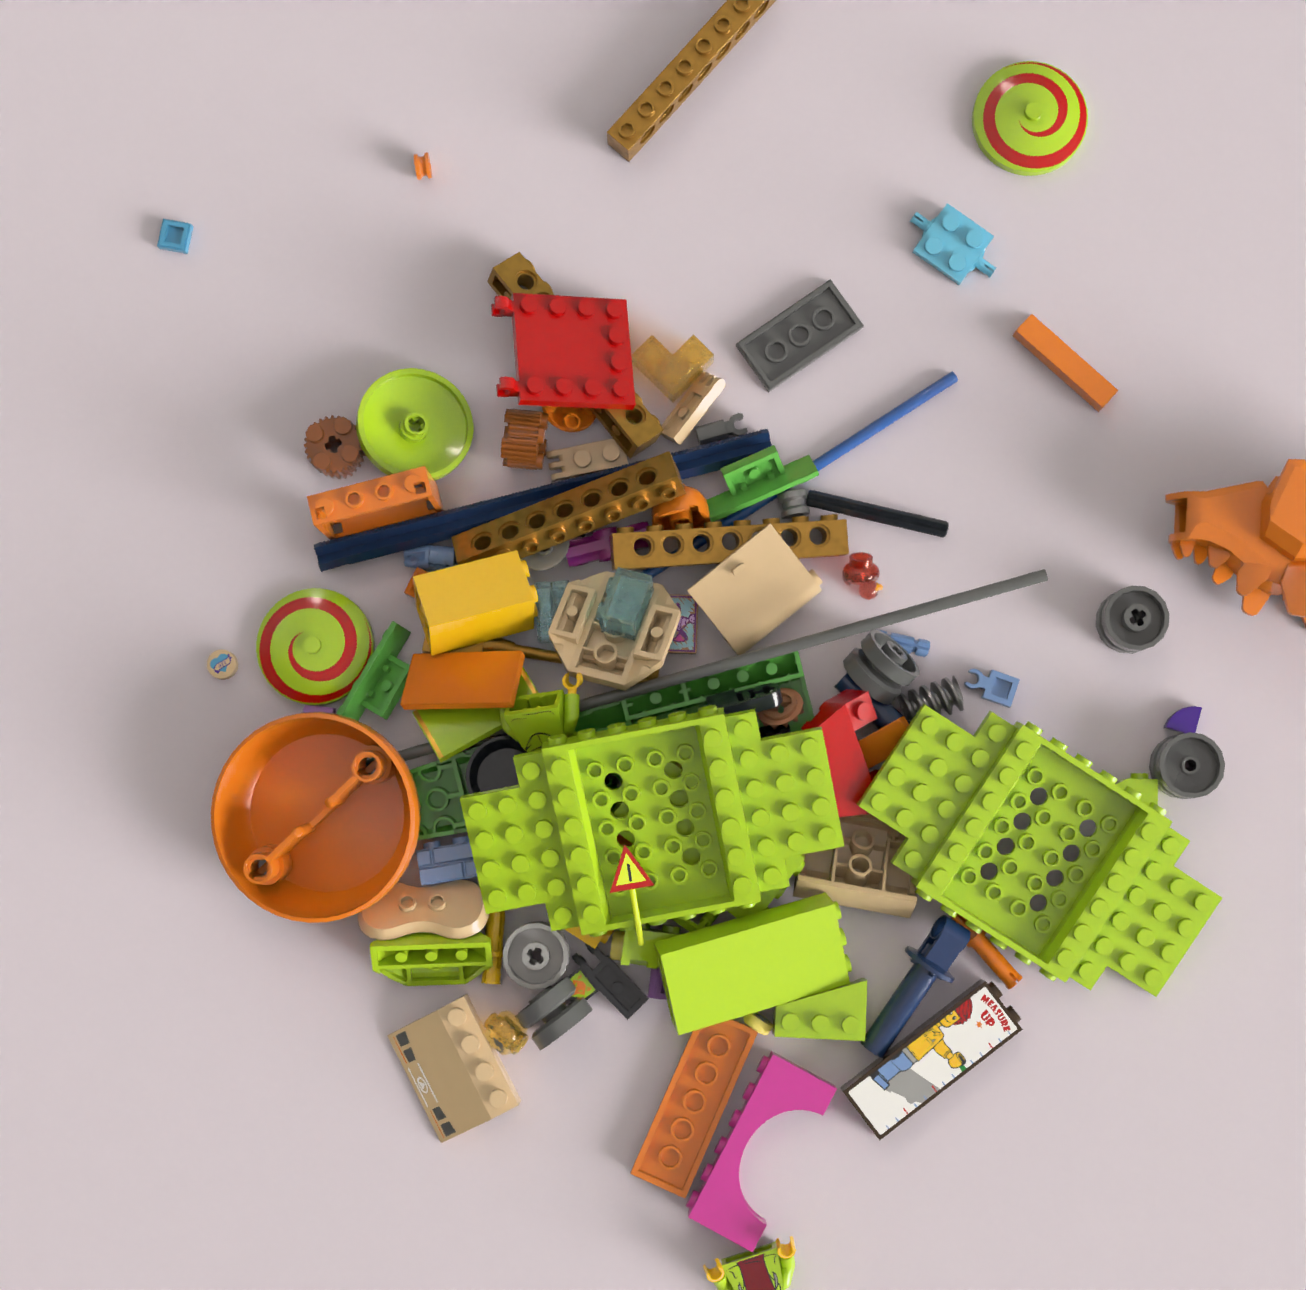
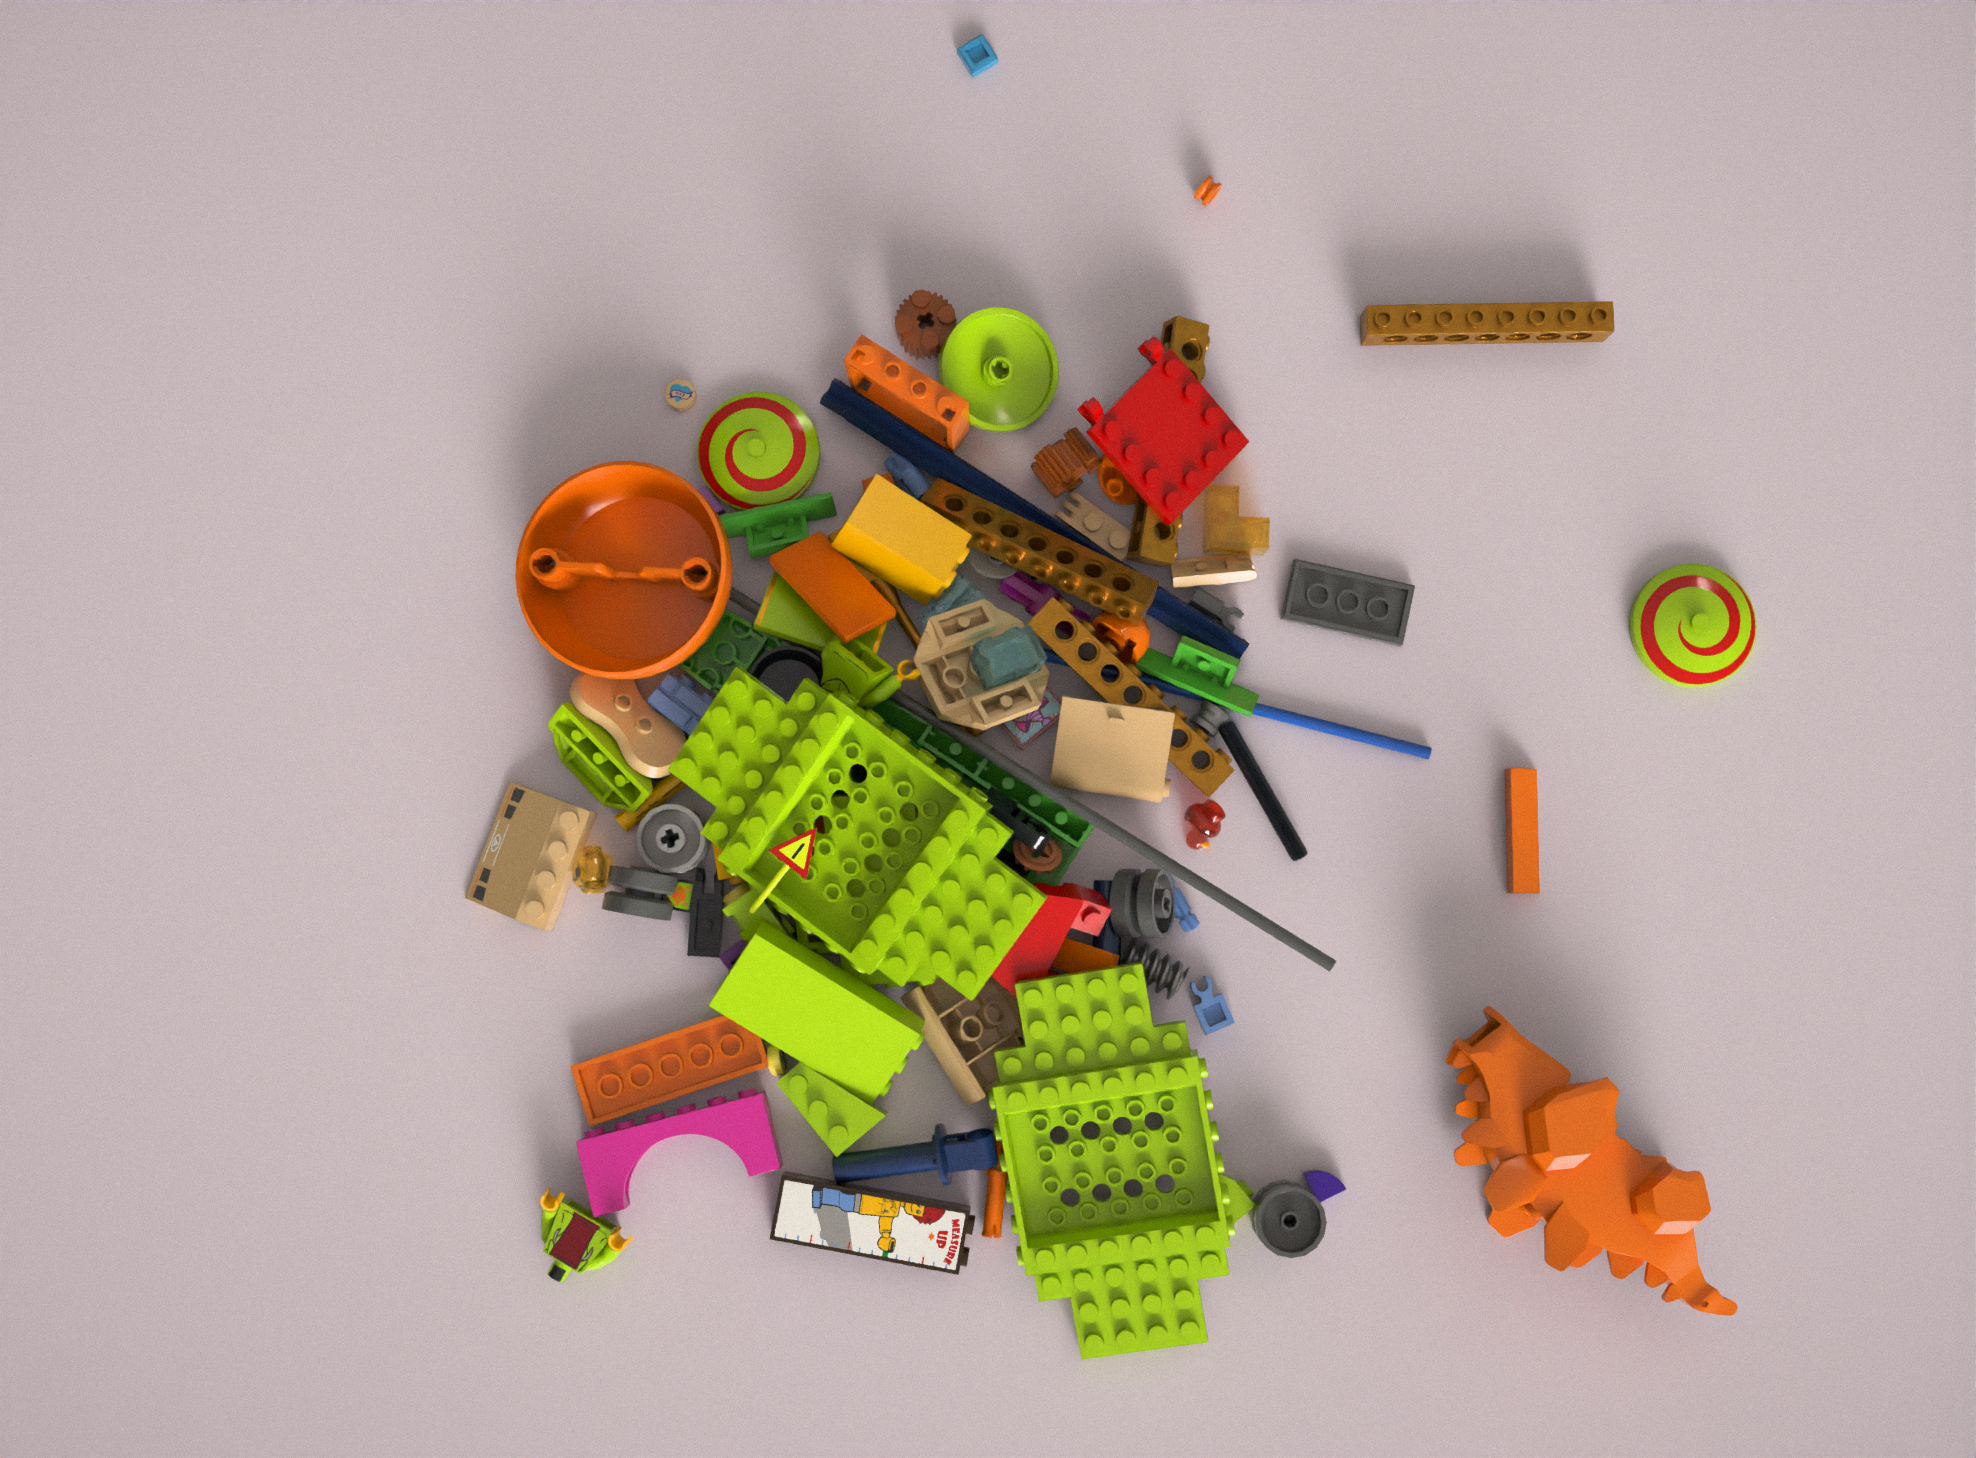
camera: 45 degrees right, 0 degrees up
(953, 244) = (1534, 656): medium azure plate -> none
(1149, 614) = (1383, 1073): dark grey wheel -> none

